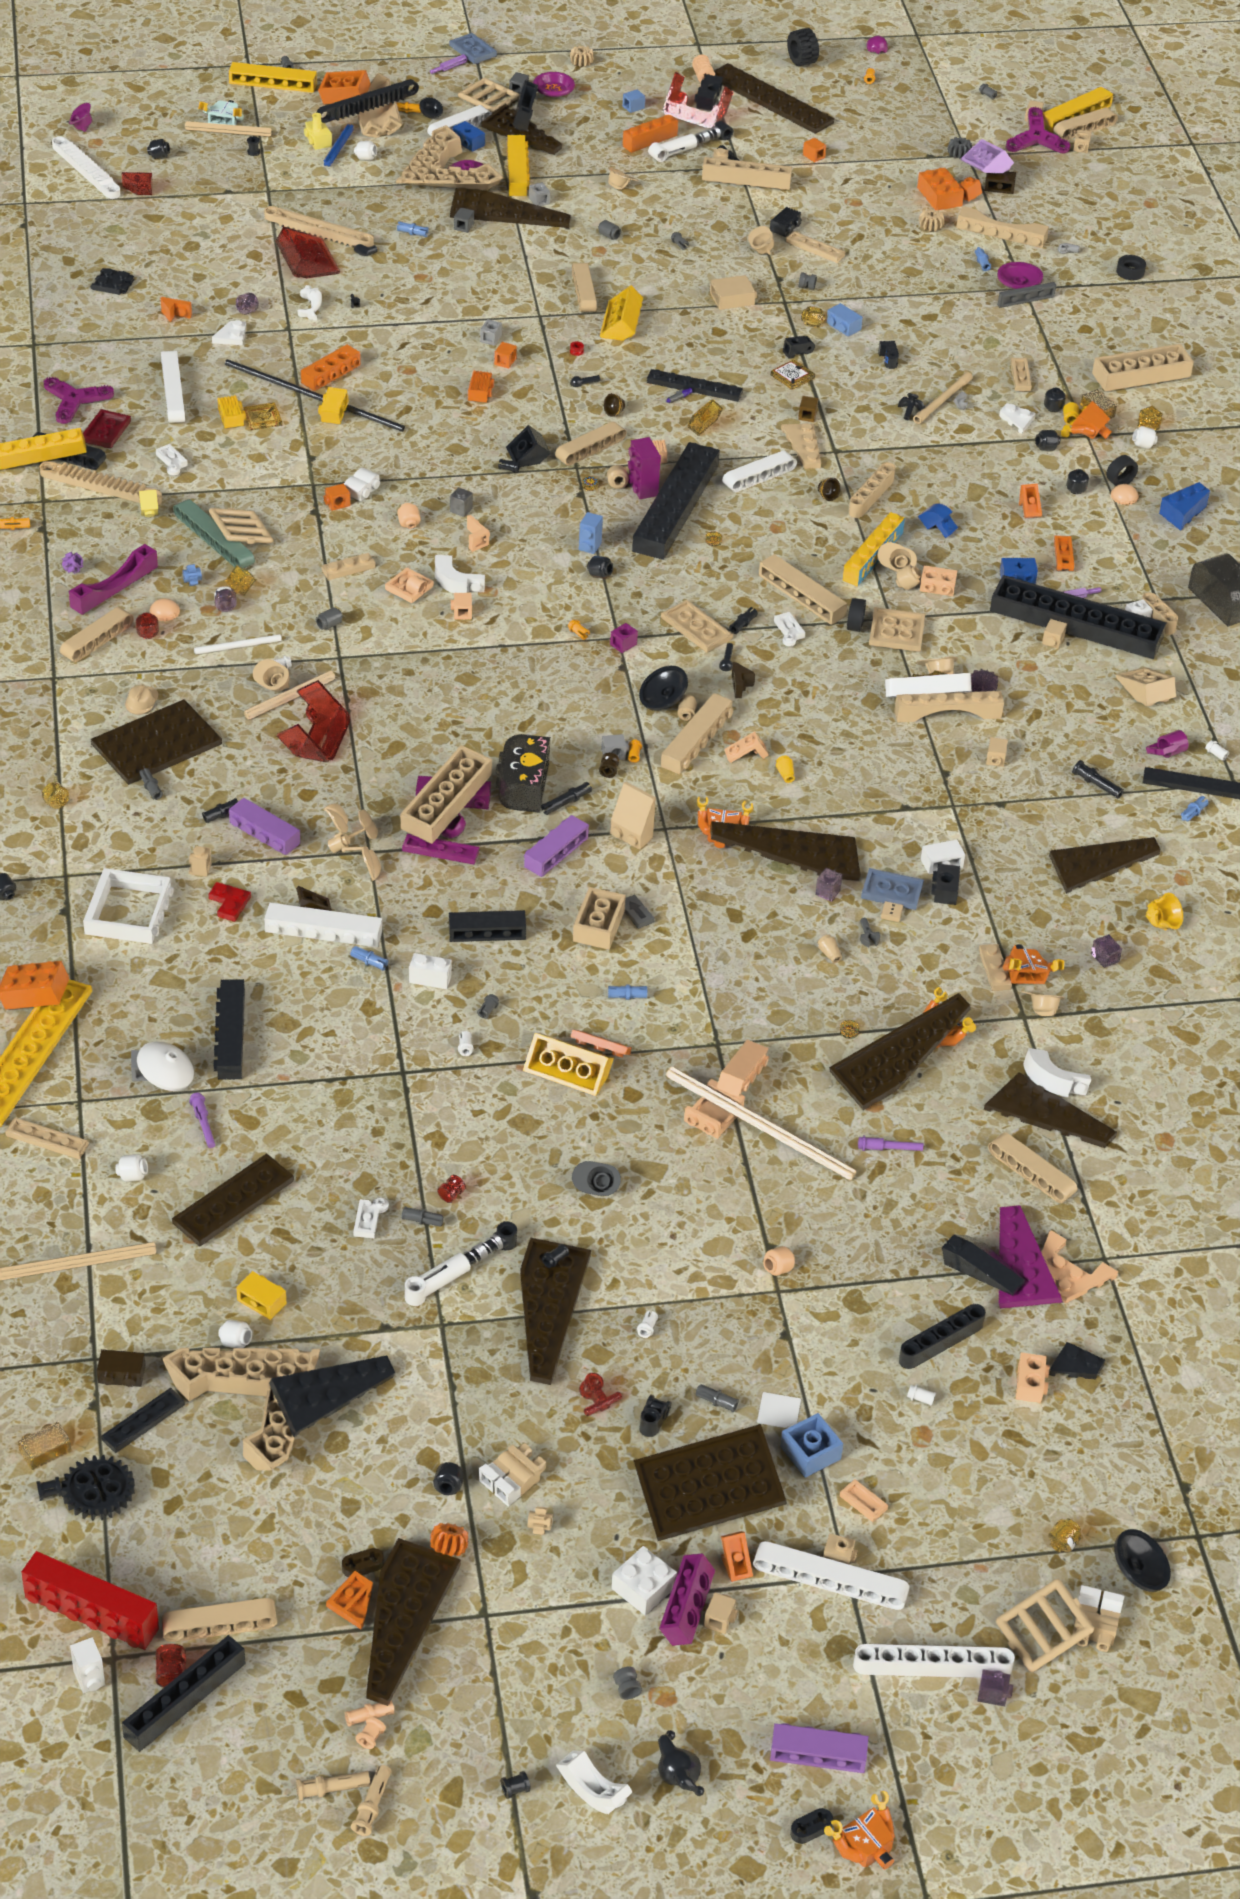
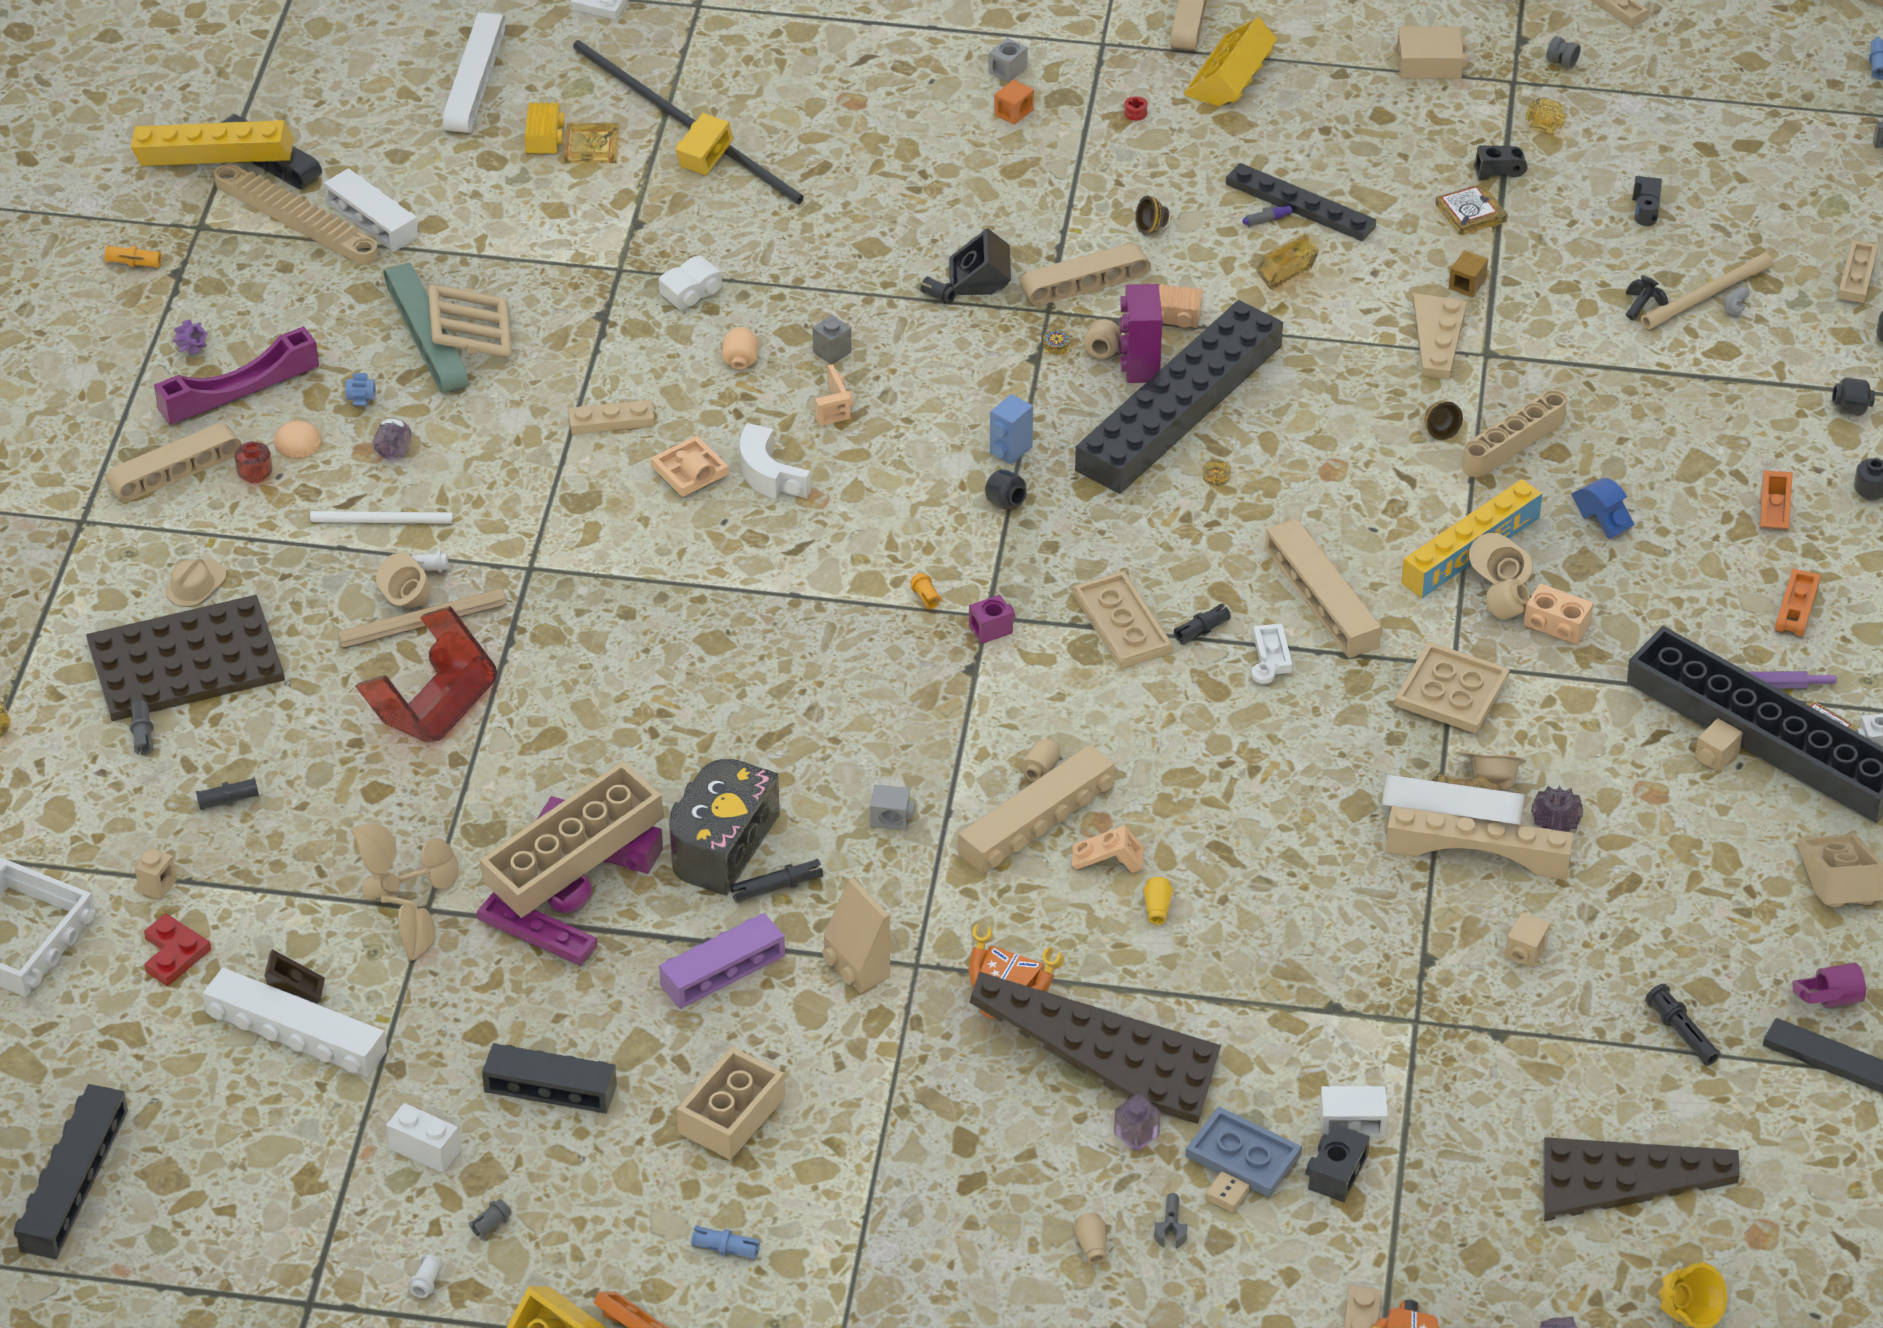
camera: 20 degrees right, 0 degrees up
(69, 404) = (309, 75): magenta piece -> none
(106, 428) = (342, 124): dark red plate -> none
(148, 503) = (347, 259): light yellow brick -> none
(149, 473) = (371, 210): none -> white brick
(172, 459) = (419, 191): white hinge -> none
(240, 580) = (427, 412): clear yellow brick -> none
(264, 826) = (279, 834): medium lavender brick -> none
(329, 618) = (538, 500): dark grey brick -> none
(330, 367) = (729, 79): orange brick -> none
(337, 497) = (642, 297): orange brick -> none
(369, 958) = (341, 1094): medium blue axle -> none
(462, 605) = (756, 516): light nougat brick -> none
(480, 386) = (950, 149): orange brick -> none
(577, 381) = (1113, 165): black bar -> none
(609, 765) = (869, 836): dark brown wheel -> none
(634, 750) = (925, 813): light orange pin -> none
(637, 912) = (804, 1103): dark grey tile -> none
(663, 688) = (1012, 720): black dish -> none
(726, 663) = (1141, 695): black bar -> none
(741, 679) = (1150, 726): dark brown slope -> none
(759, 471) = (1340, 368): white beam -> none
(844, 319) = (1596, 128): medium blue brick -> none
(856, 614) = (1389, 649): black tyre -> none
(1017, 416) = (1822, 345): white wing -> none
(1019, 568) = (1705, 620): blue brick -> none
(1194, 809) = (1831, 1112): medium blue axle -> none

